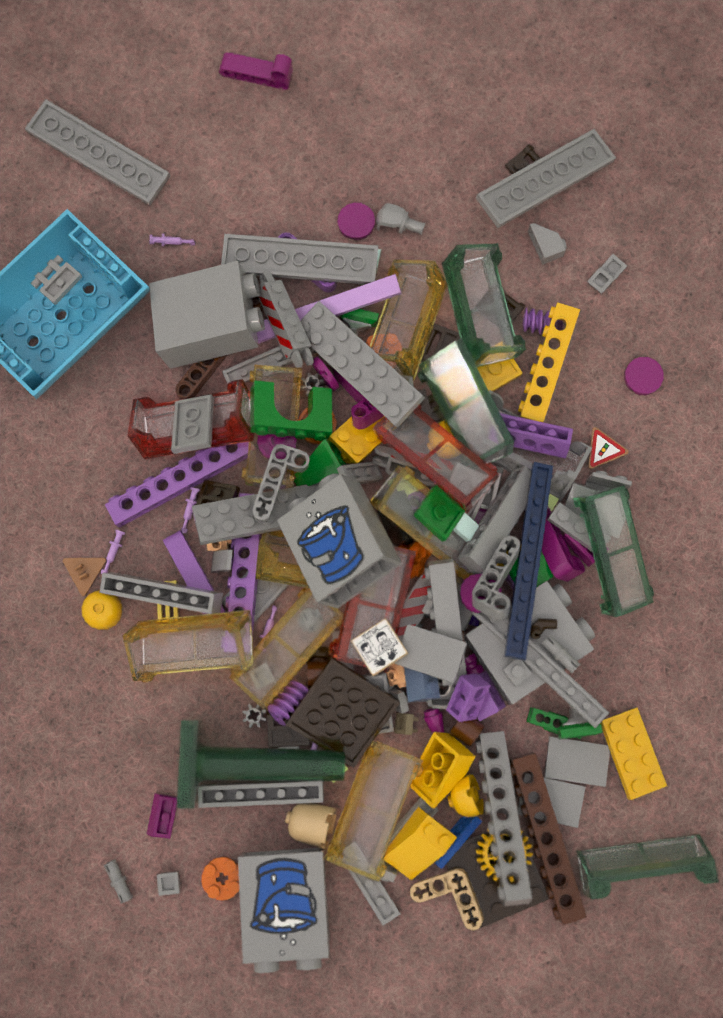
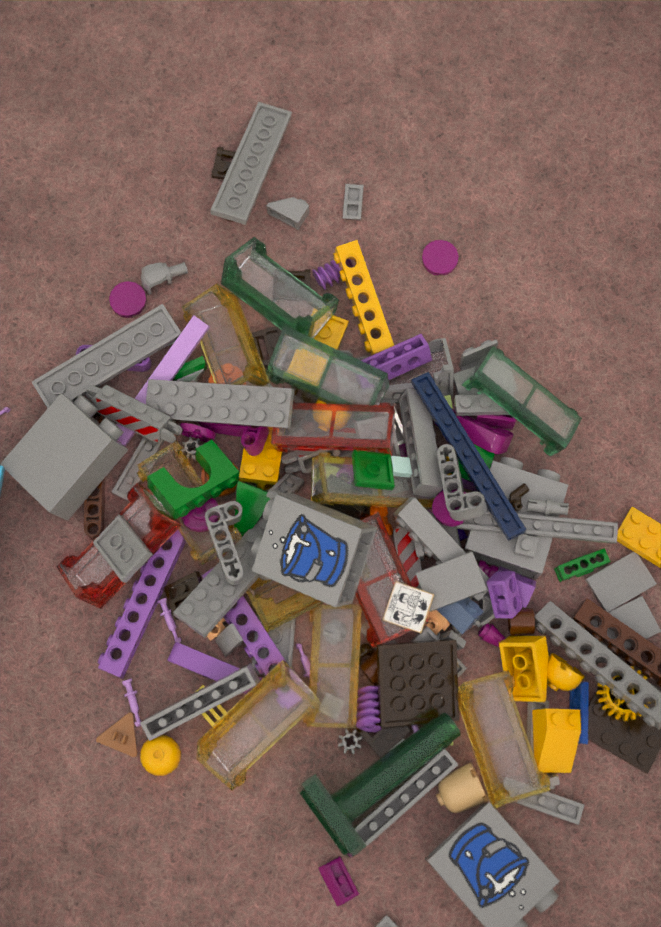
camera: 40 degrees left, 5 degrees down
(212, 872) = (413, 893): orange plate -> none
(404, 723) = (471, 655): dark tan tile -> none
(451, 886) = (604, 751): tan beam -> none
(577, 727) = (601, 553): green piece -> none
(604, 449) = (455, 332): piece -> none

